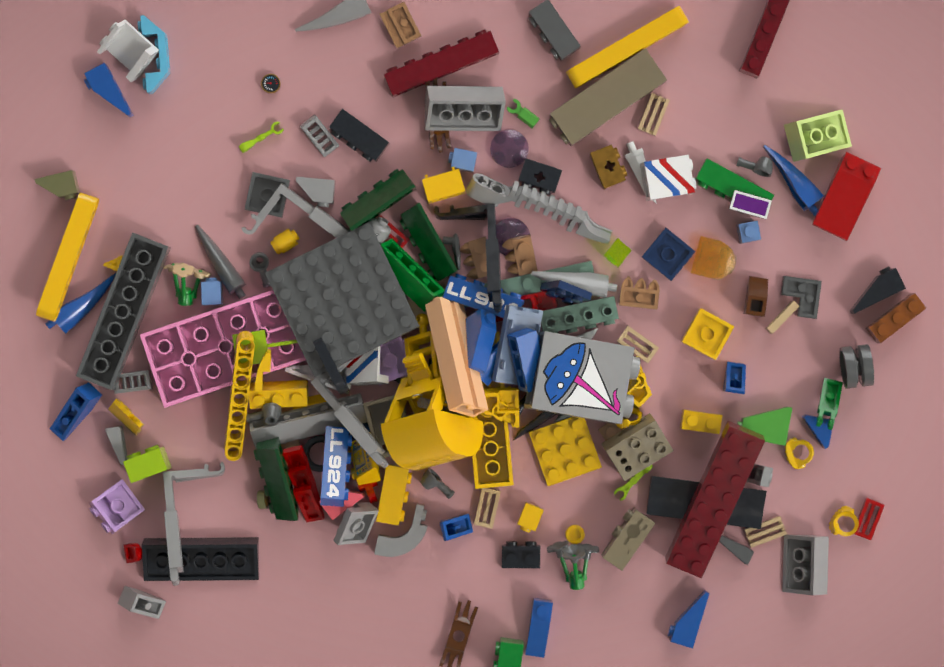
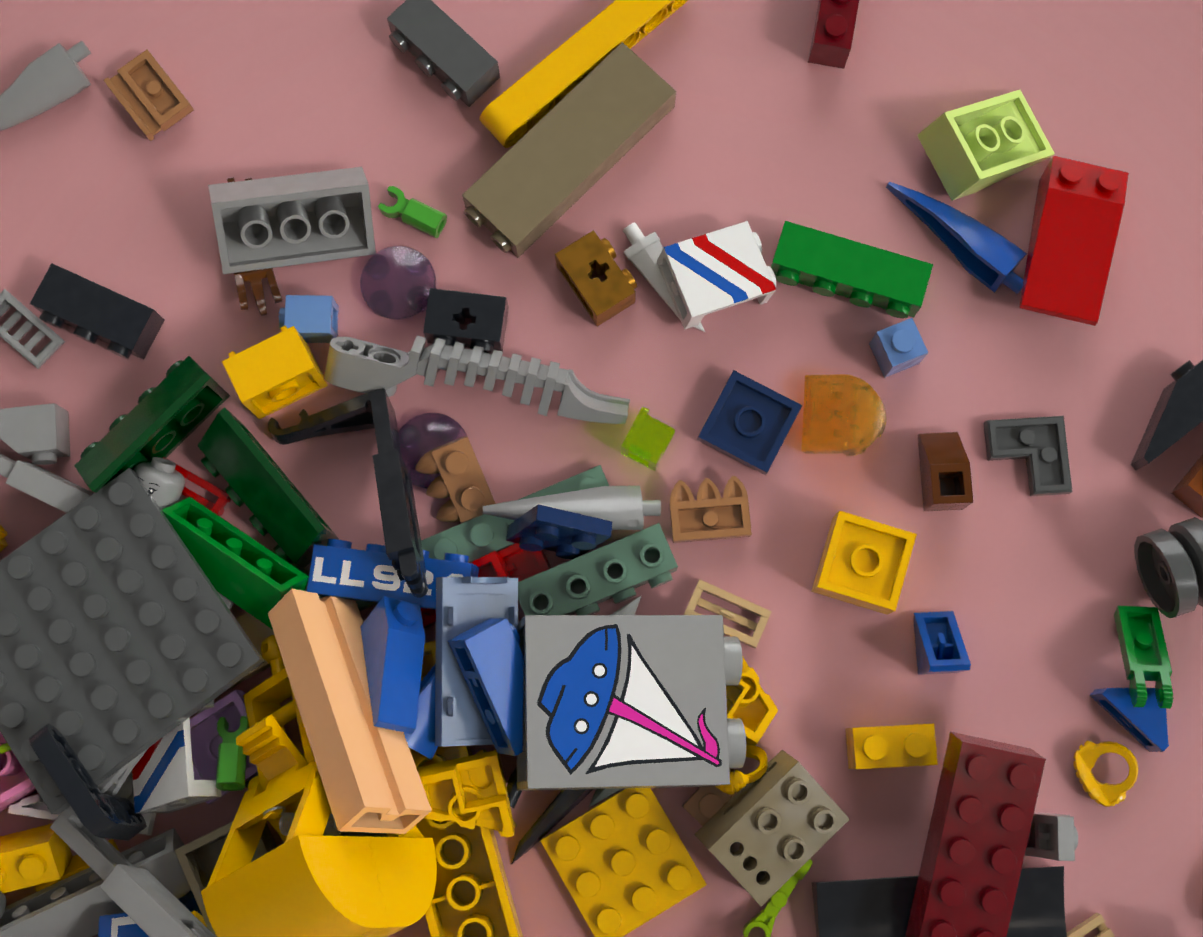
camera: 10 degrees left, 10 degrees down
(395, 366) = (230, 760): none -> bright green bar
(440, 64) = (237, 148): dark red brick -> none
(454, 241) = (325, 491): dark grey bar -> none
(477, 249) = (363, 487): medium nougat plate -> none
(659, 99) = (669, 138): tan tile -> none
(750, 204) = (891, 290): dark purple tile -> none
(762, 167) = (894, 225): dark grey bar -> none
(770, 424) = (1035, 721): bright green slope -> none
(782, 317) = (1004, 501): tan tile -> none

